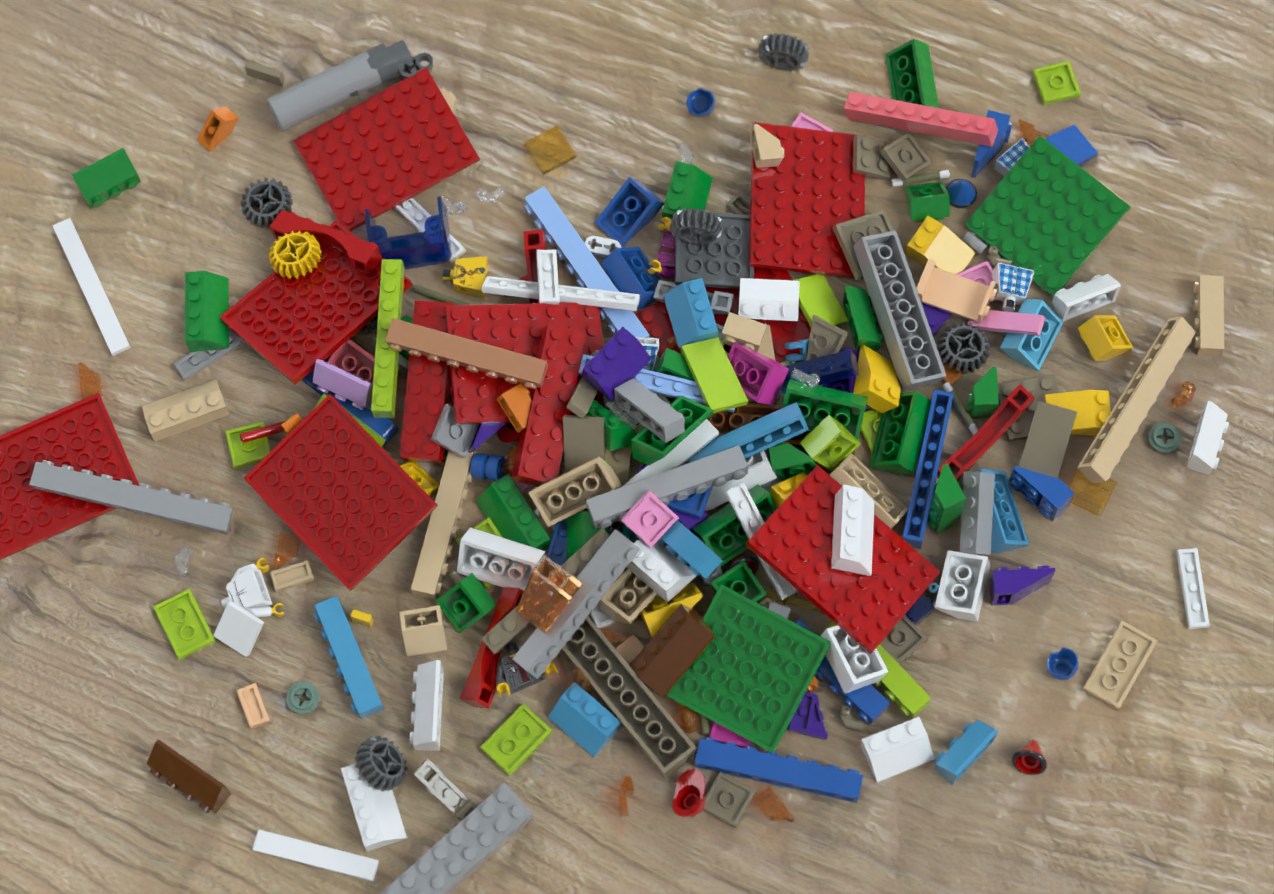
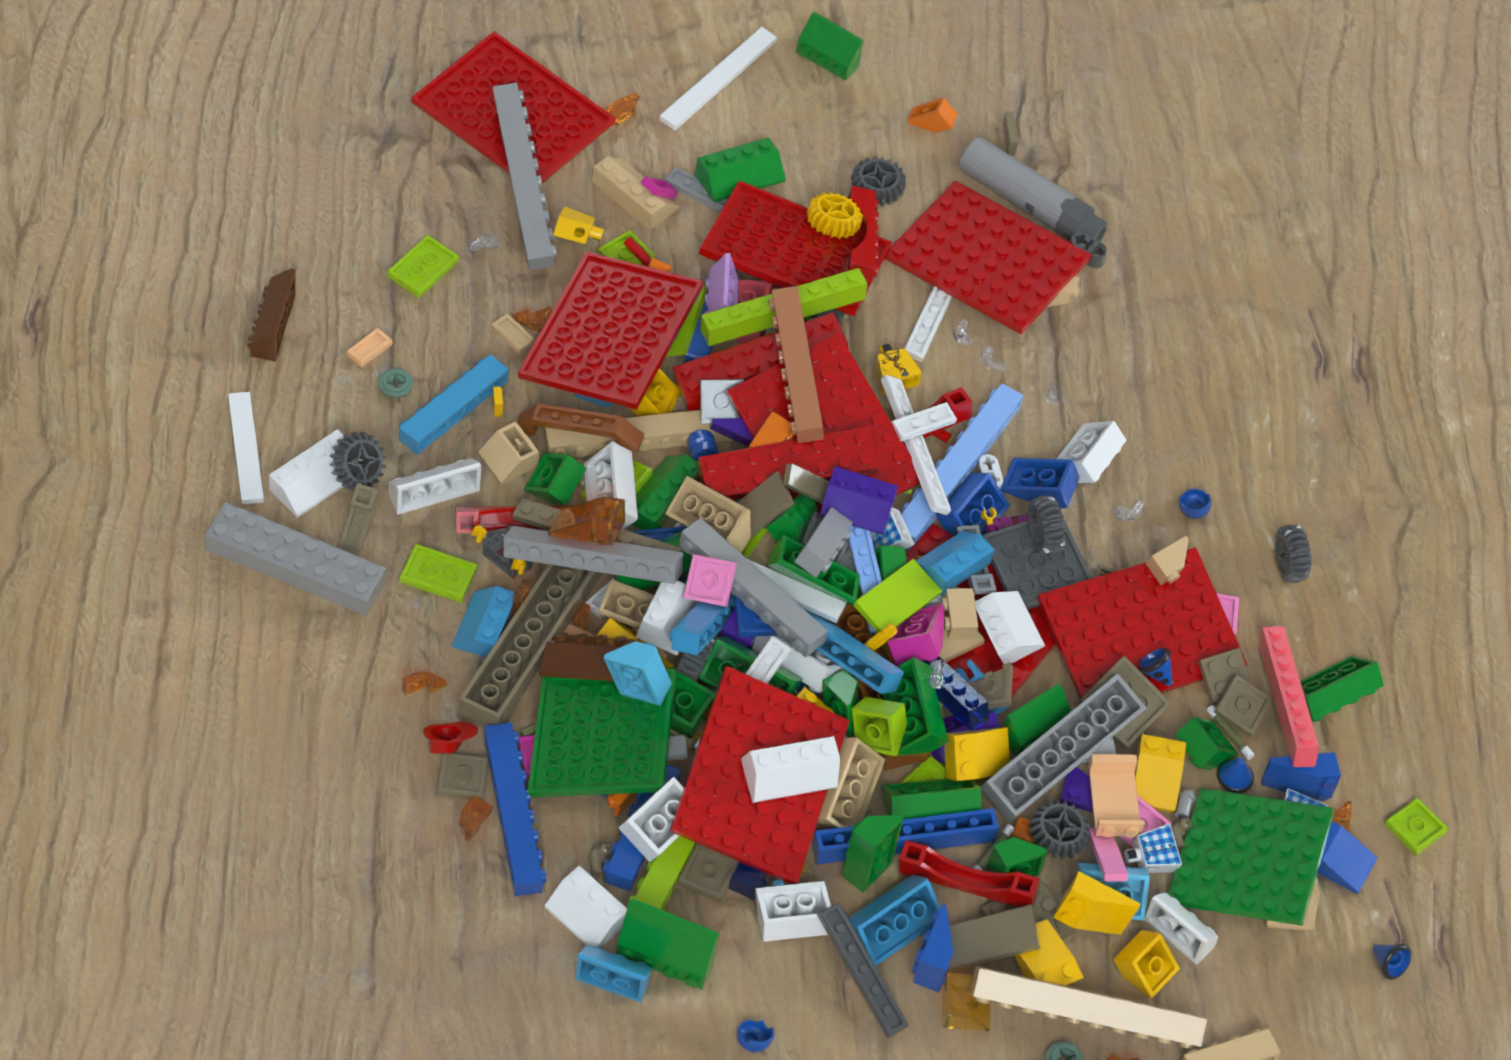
camera: 55 degrees right, 15 degrees down
(195, 387) = (659, 187): none -> dark pink tile
(206, 475) = (569, 226): none -> yellow torso
(238, 629) = (437, 305): white tile -> none
(250, 591) = (477, 301): white torso -> none
(415, 249) = (896, 313): clear blue windscreen -> none
(423, 560) = (581, 422): none -> dark orange slope
(437, 296) = (860, 347): olive bar -> none
(550, 150) = (1069, 394): clear yellow tile -> none
(615, 159) = (1093, 449): none -> white slope
(687, 189) = (1093, 523): green slope -> none
(688, 718) = (527, 712): clear orange cone -> none
(726, 613) = (639, 672): none -> medium azure slope
(750, 406) = (881, 637): none -> yellow axle
(808, 718) = (583, 816): dark purple wing -> none
(819, 300) = (1037, 675): lime tile -> none
(848, 204) = (1157, 666): none -> blue hat
(963, 701) = (667, 943): none -> green slope
(977, 513) = (879, 888): light grey brick -> none
(1013, 585) = (820, 960): dark purple slope -> none
(1030, 759) = (638, 1033): red hat -> none
(1038, 555) = (862, 970): none -> dark grey tile
(1047, 355) = (1095, 907): none -> yellow slope
(1166, 157) = (1393, 959): none -> blue hat

